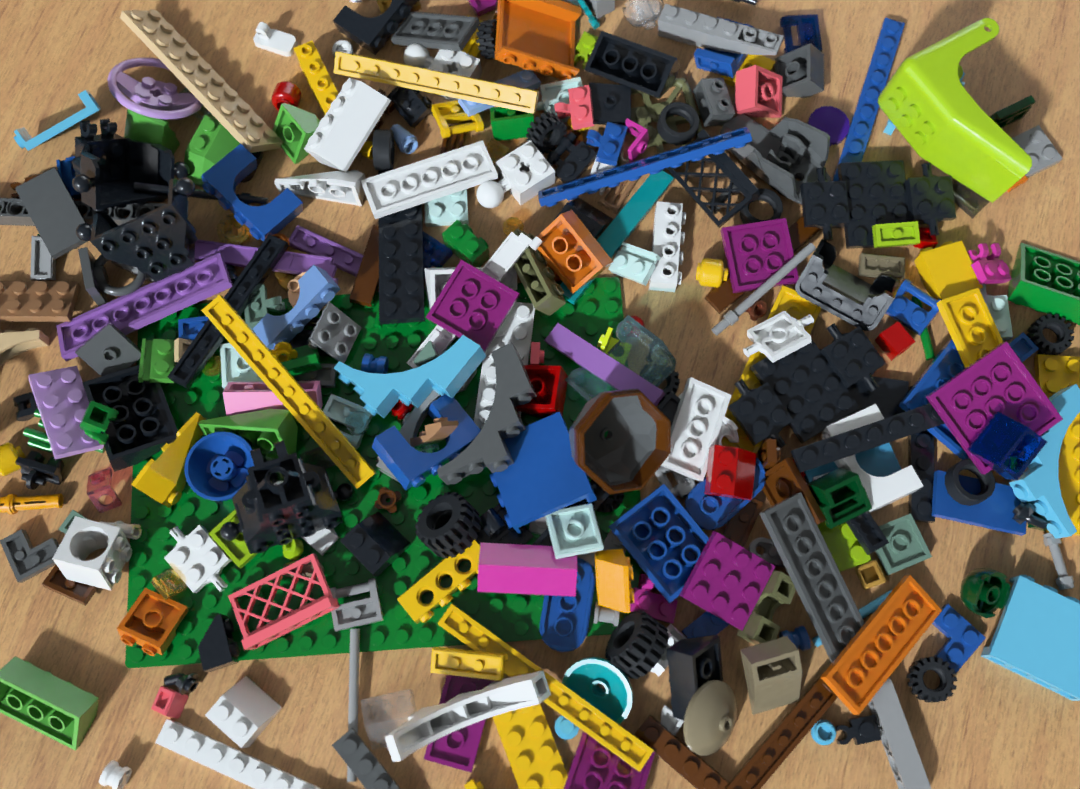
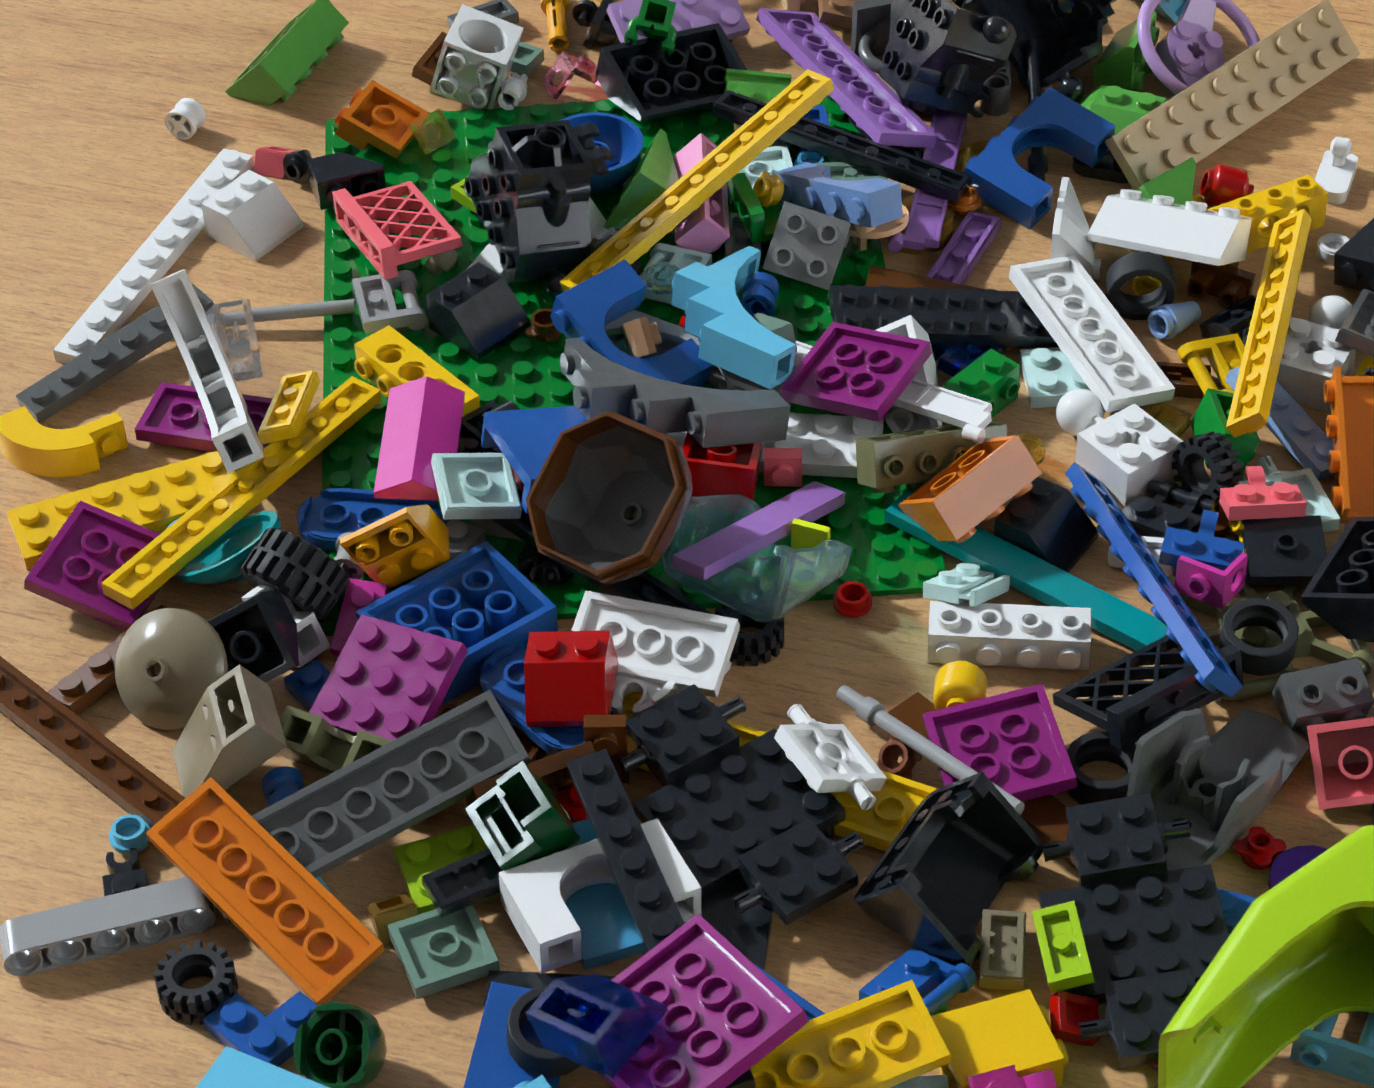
camera: 90 degrees right, 30 degrees down
(109, 351) = (772, 45): dark grey plate -> none
(166, 476) = (578, 90): yellow wedge -> none
(197, 559) = (452, 158): white plate -> none
(293, 549) = (474, 237): lime piece -> none
(448, 525) = (496, 364): black tyre -> none
(609, 205) = (1114, 584): medium nougat tile -> none
(894, 340) = (836, 952): red panel -> none

